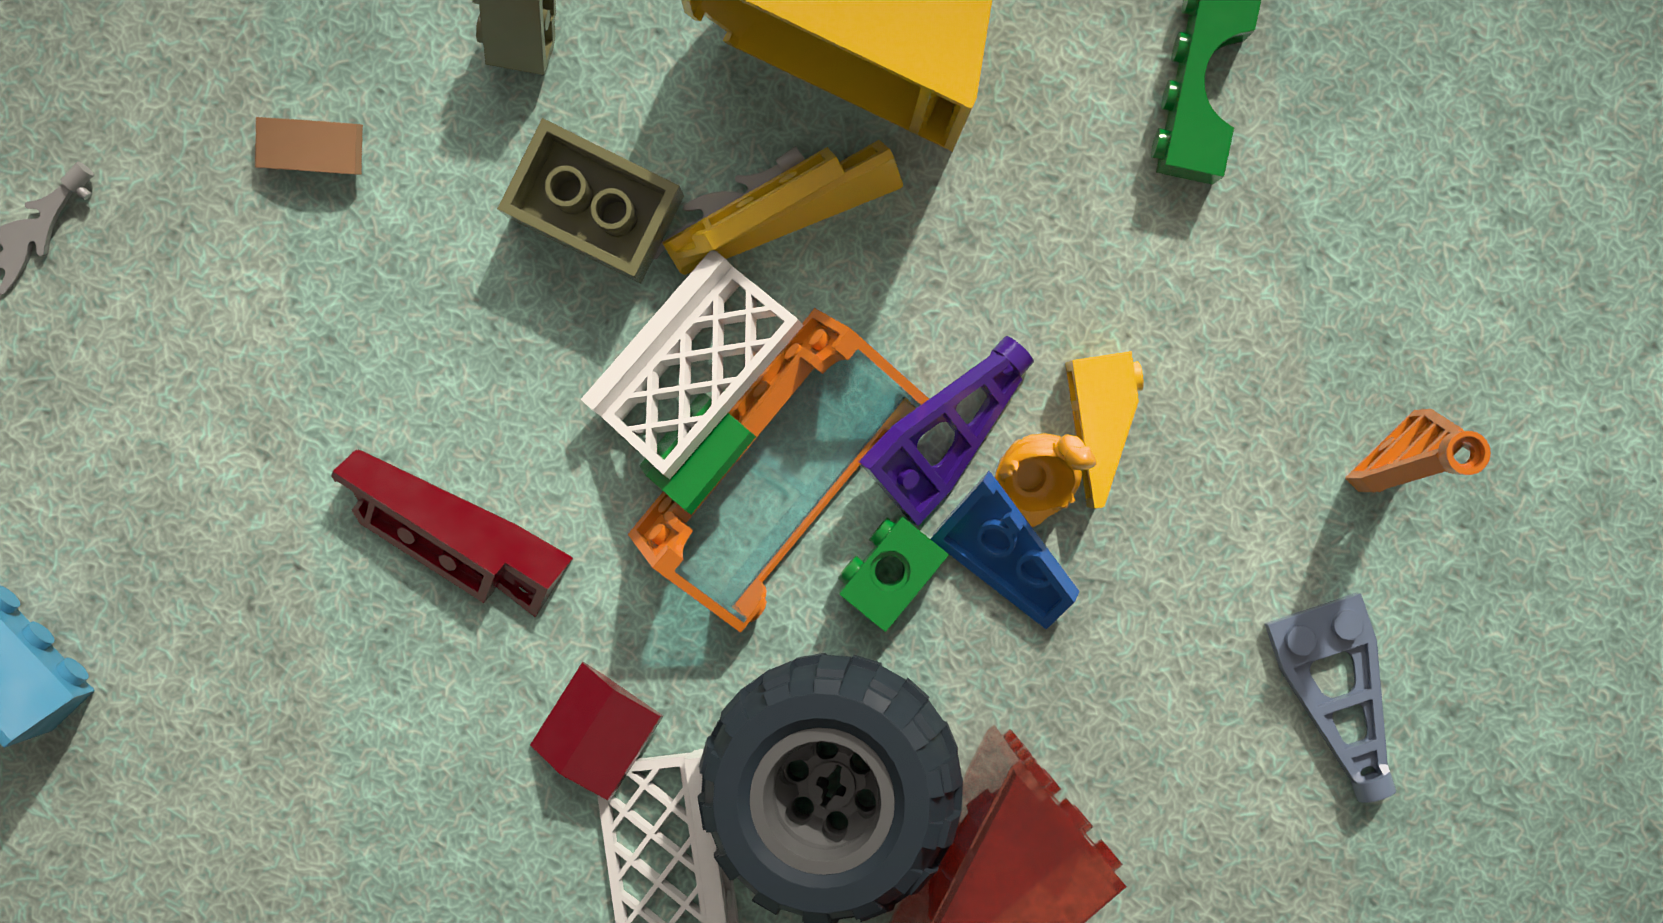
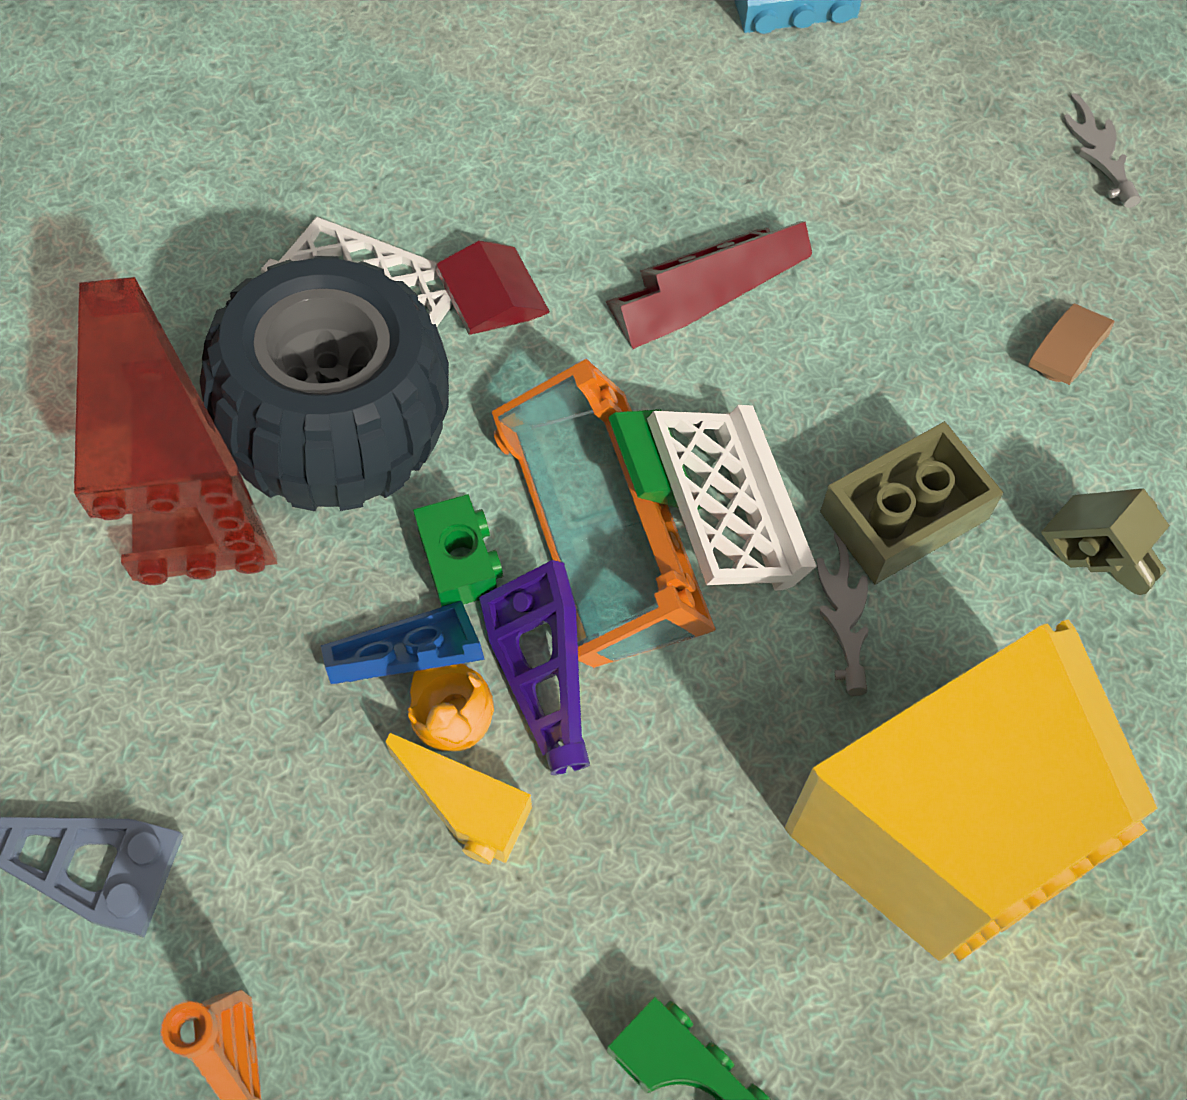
camera: 125 degrees right, 25 degrees down
(788, 203) = (819, 660): yellow wedge -> none

